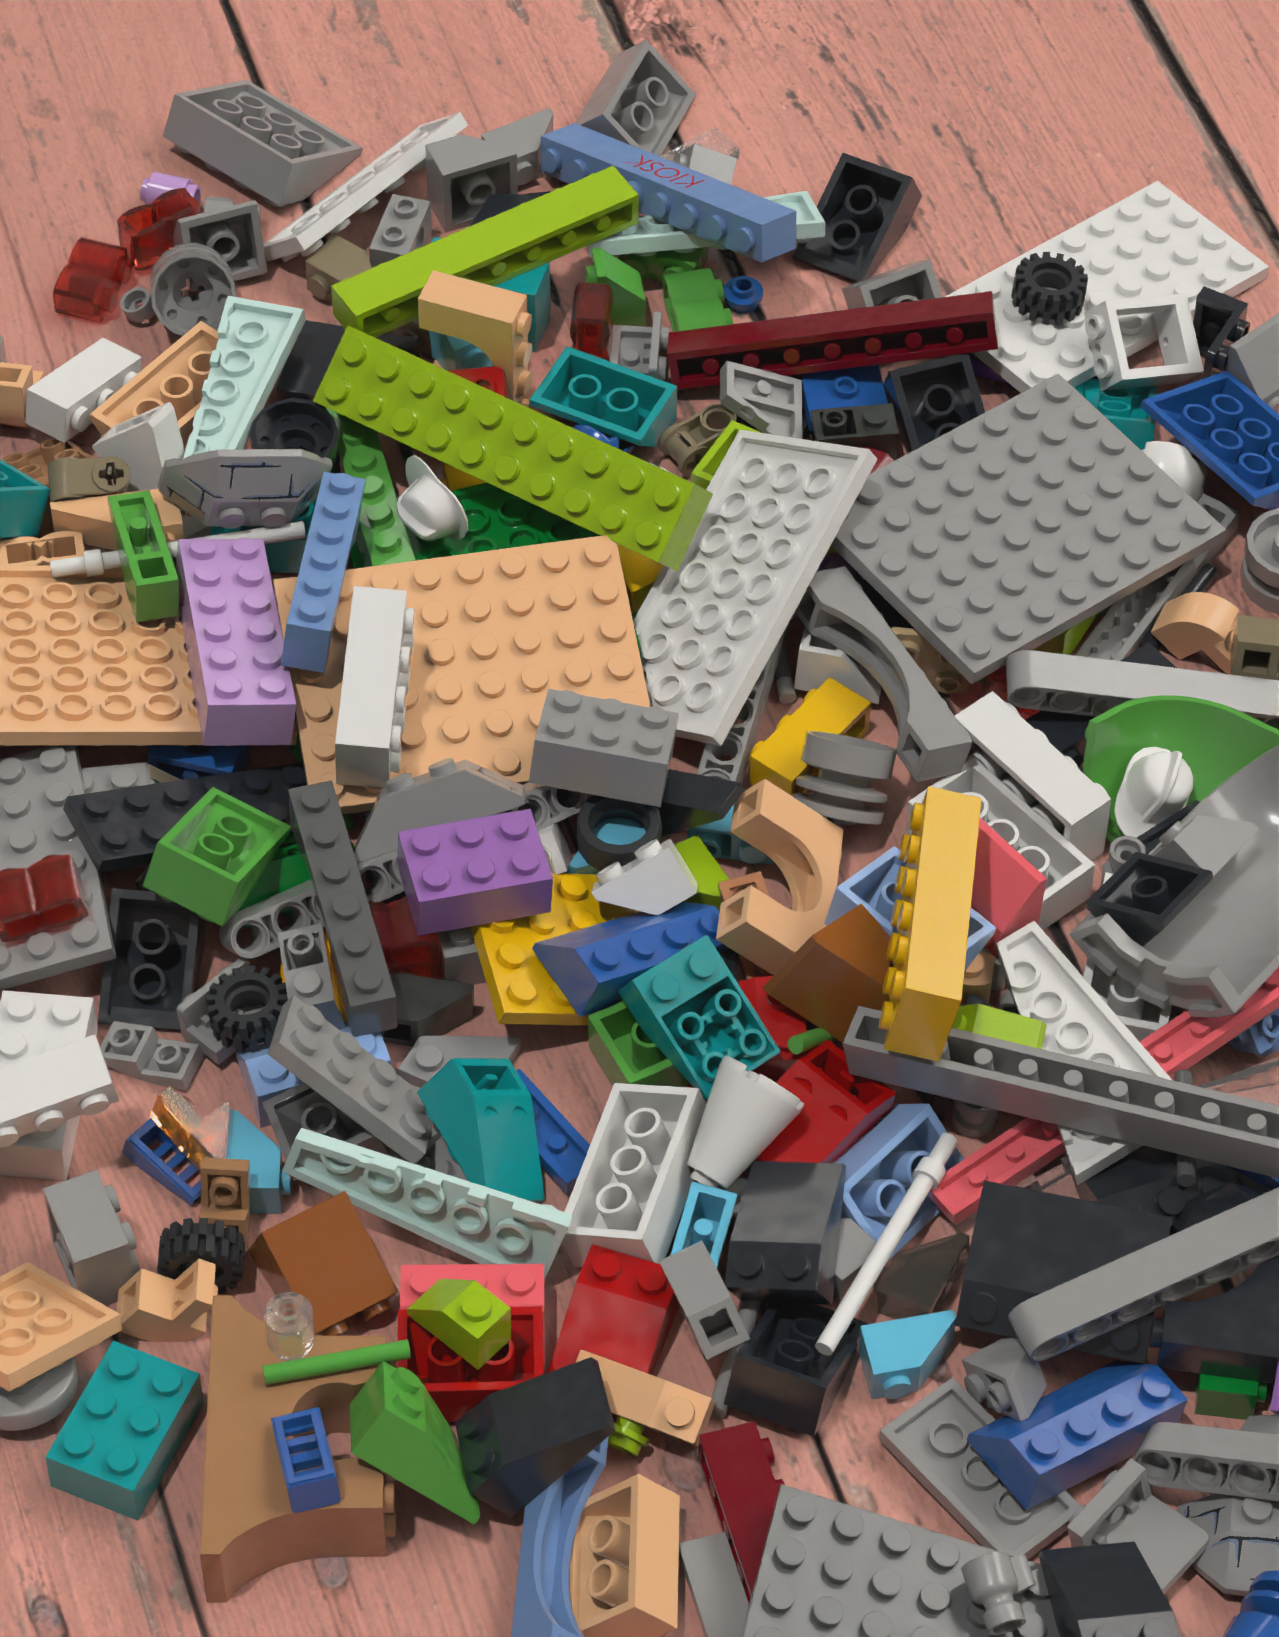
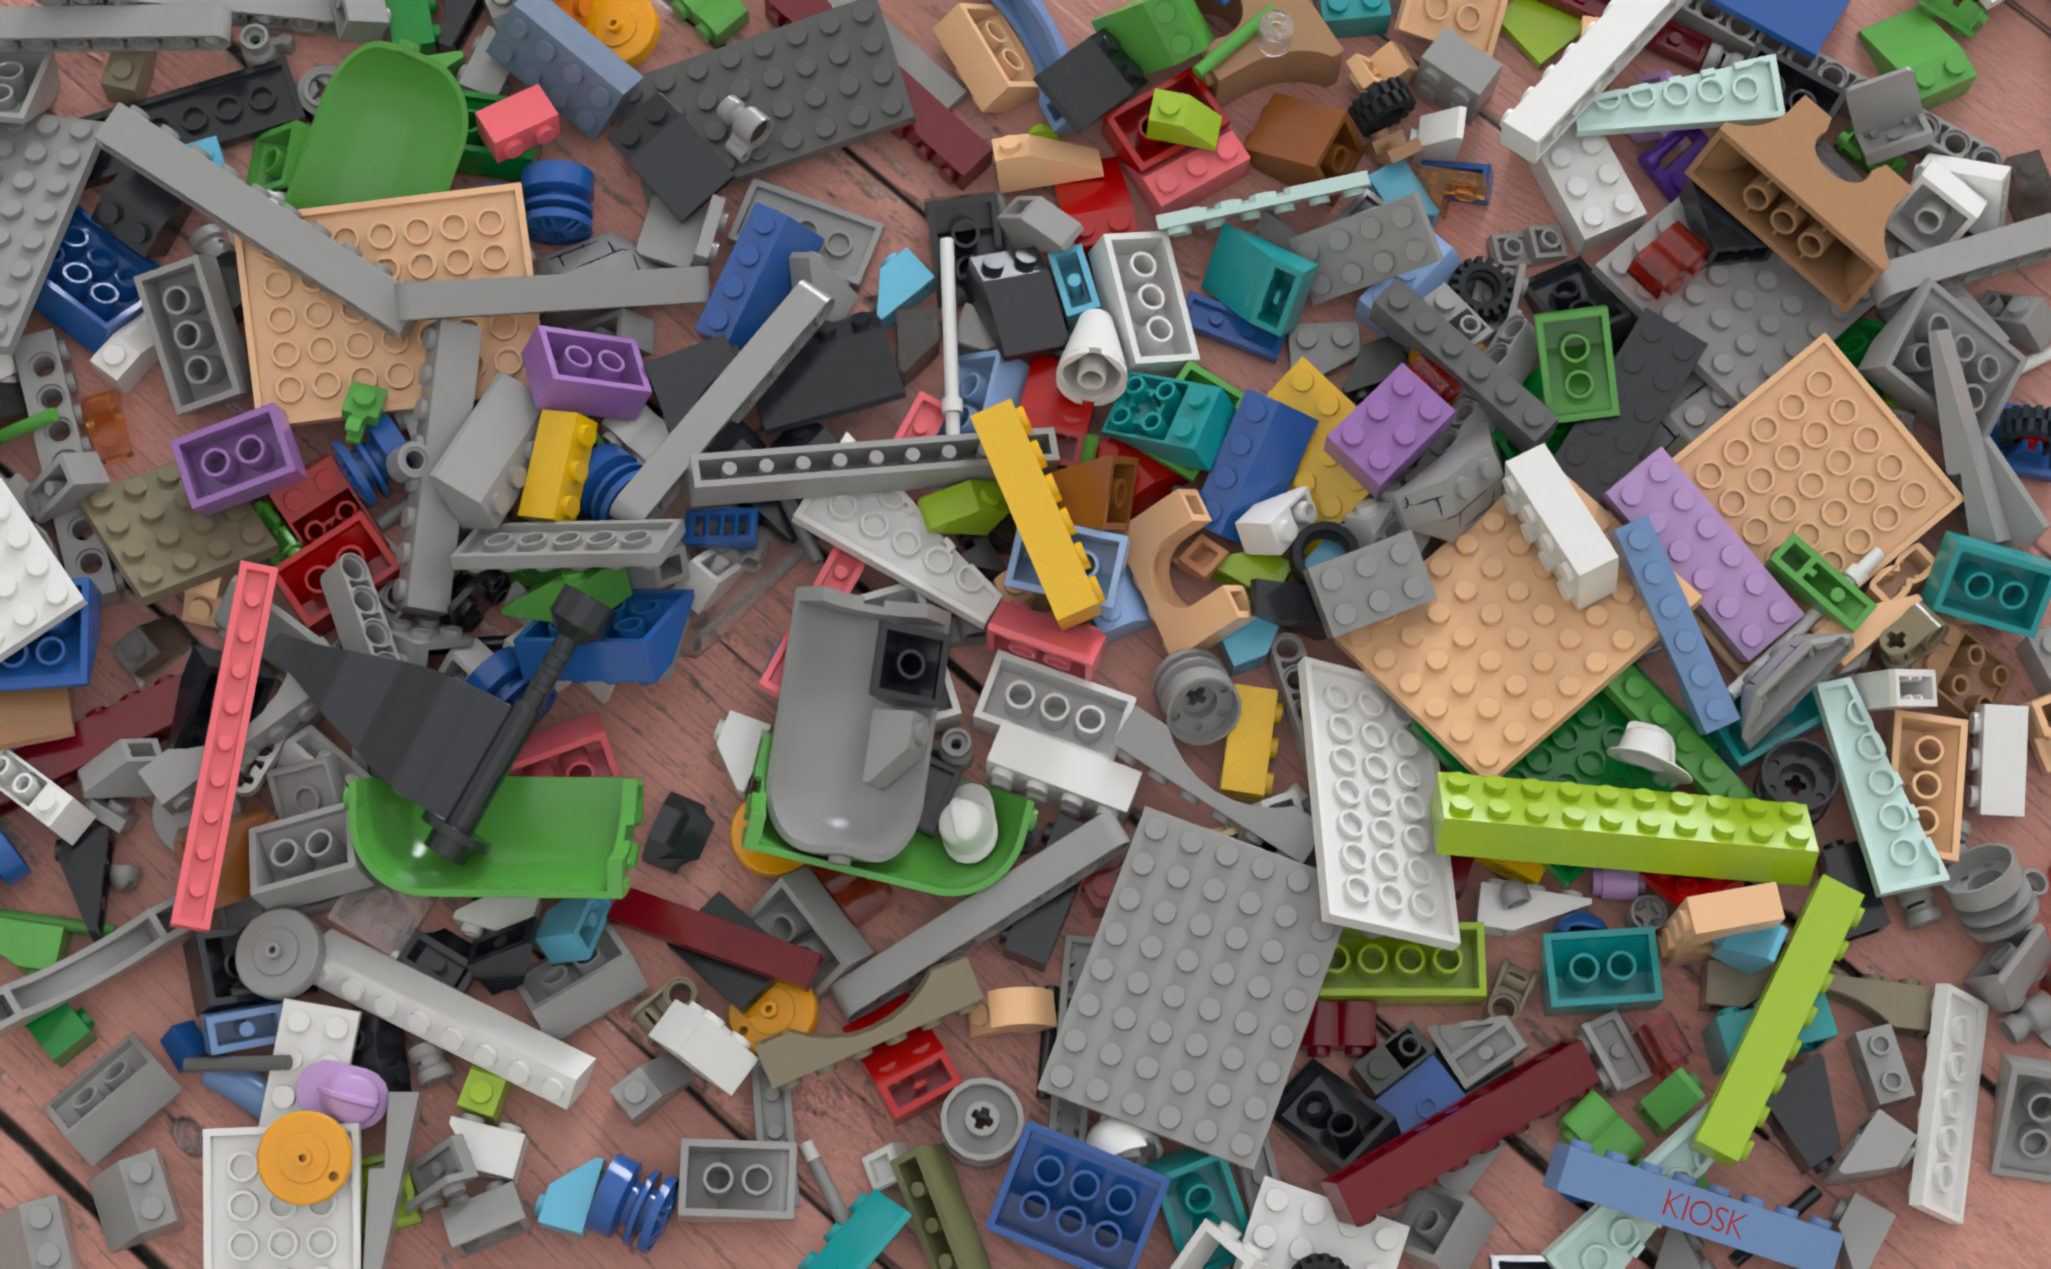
camera: 145 degrees right, 20 degrees up
(159, 1188) = (1440, 135): none -> white slope

